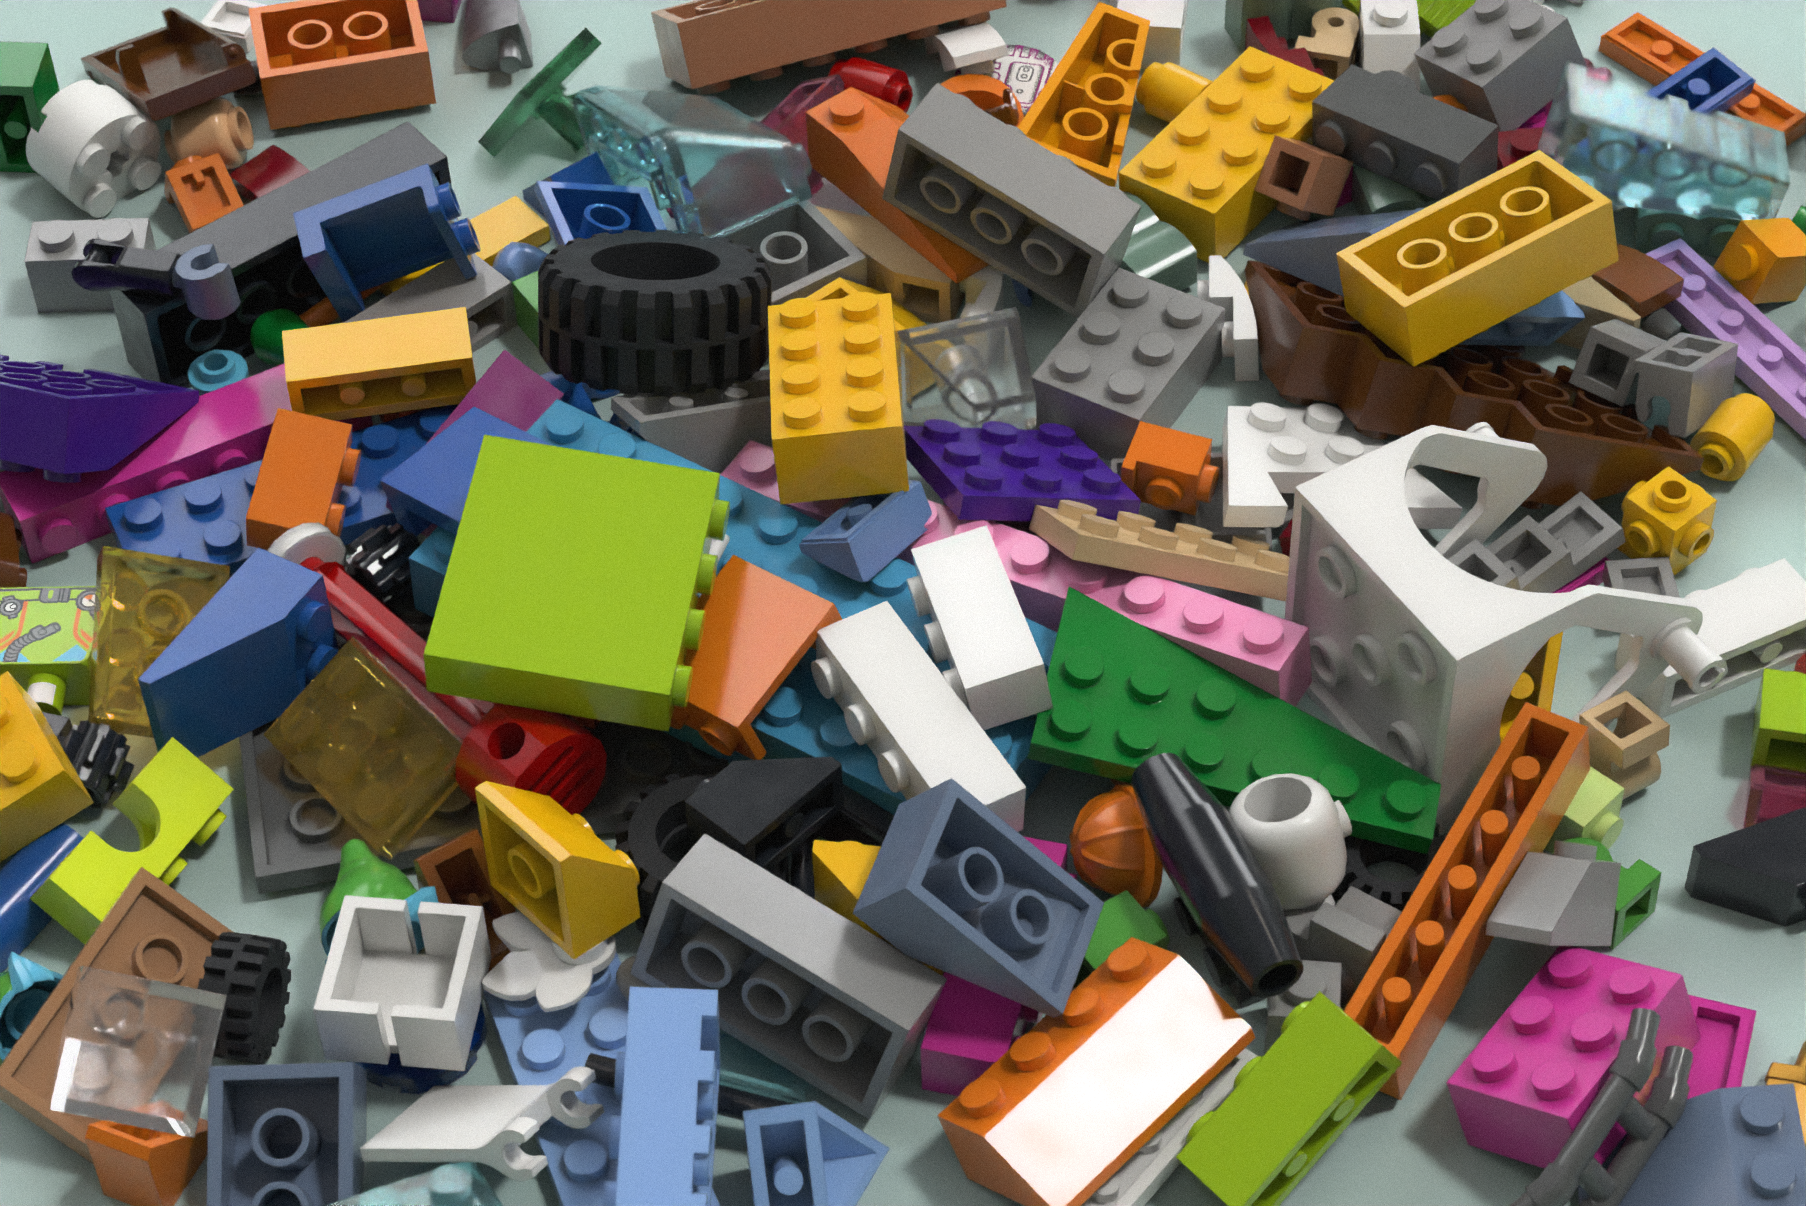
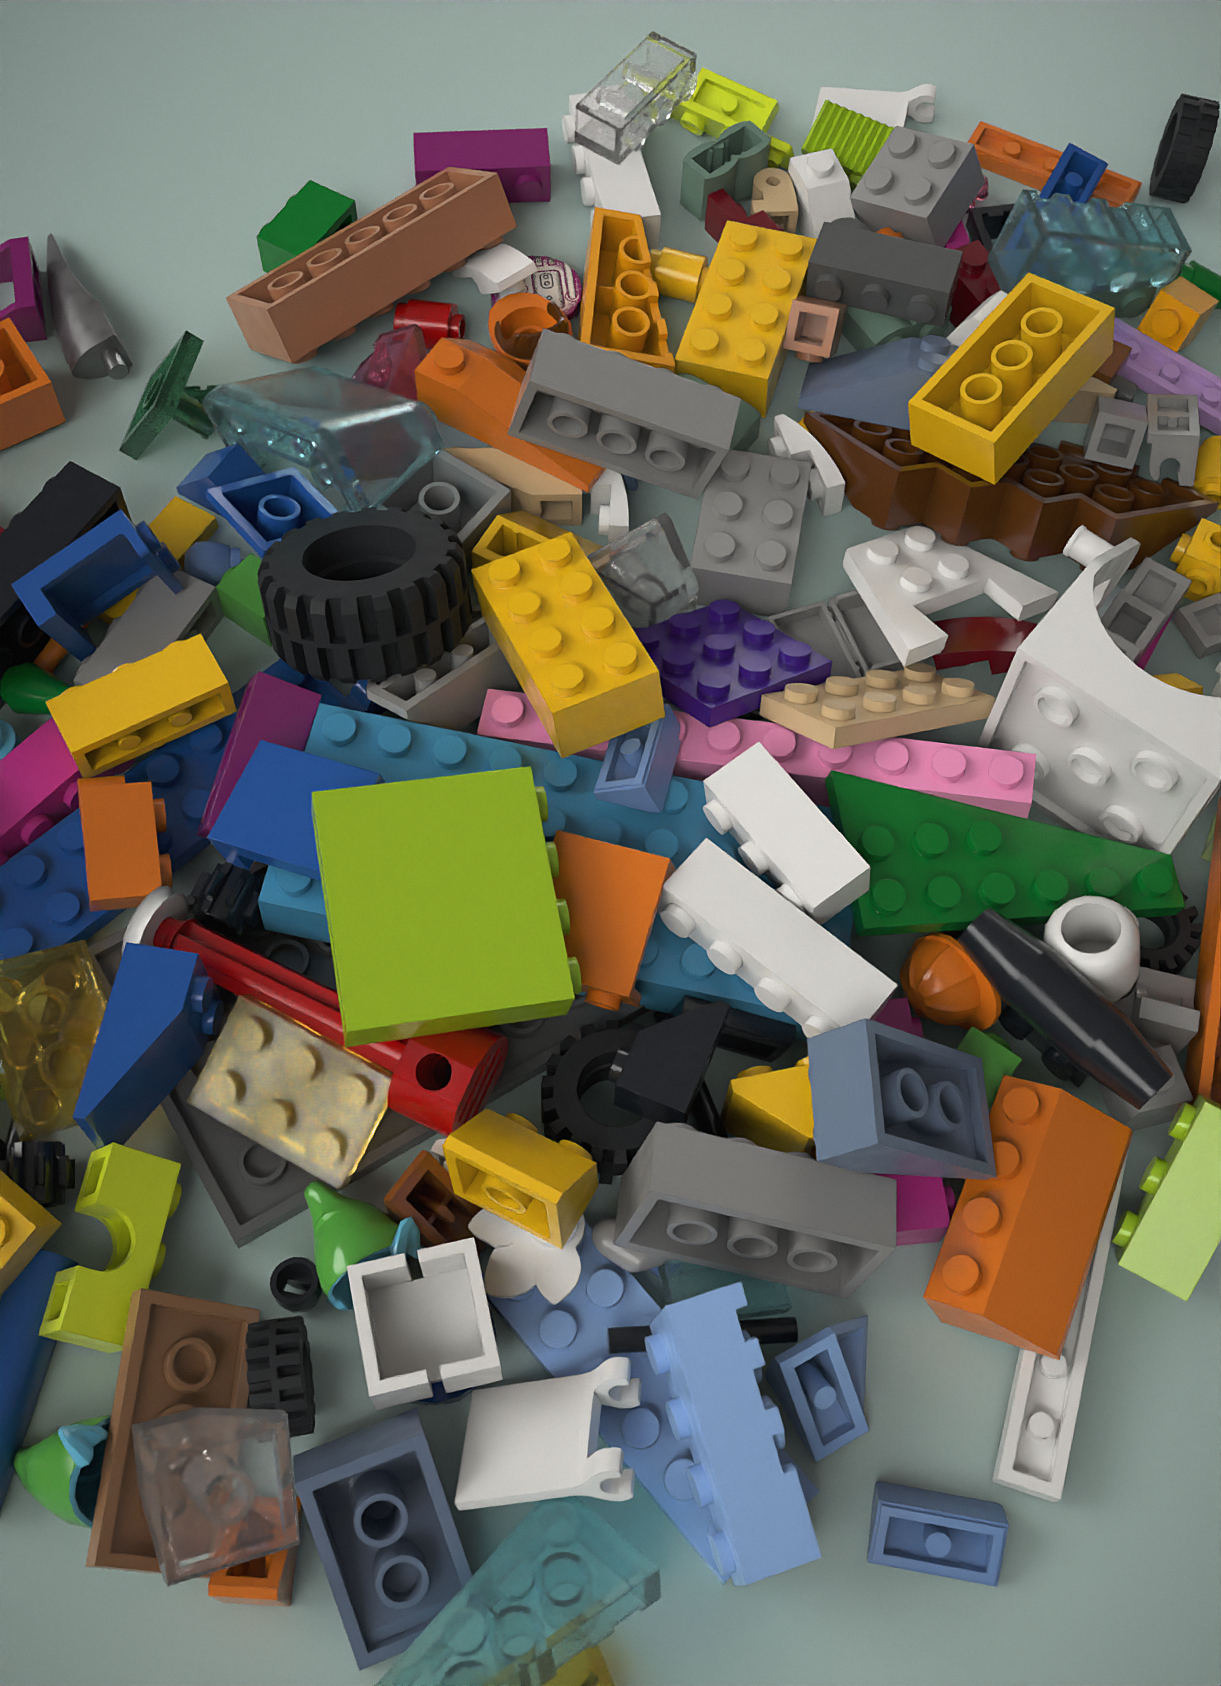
camera: 25 degrees left, 15 degrees up
(301, 933) = (298, 1273): none -> black hinge
(1170, 468) = (831, 619): orange brick -> none

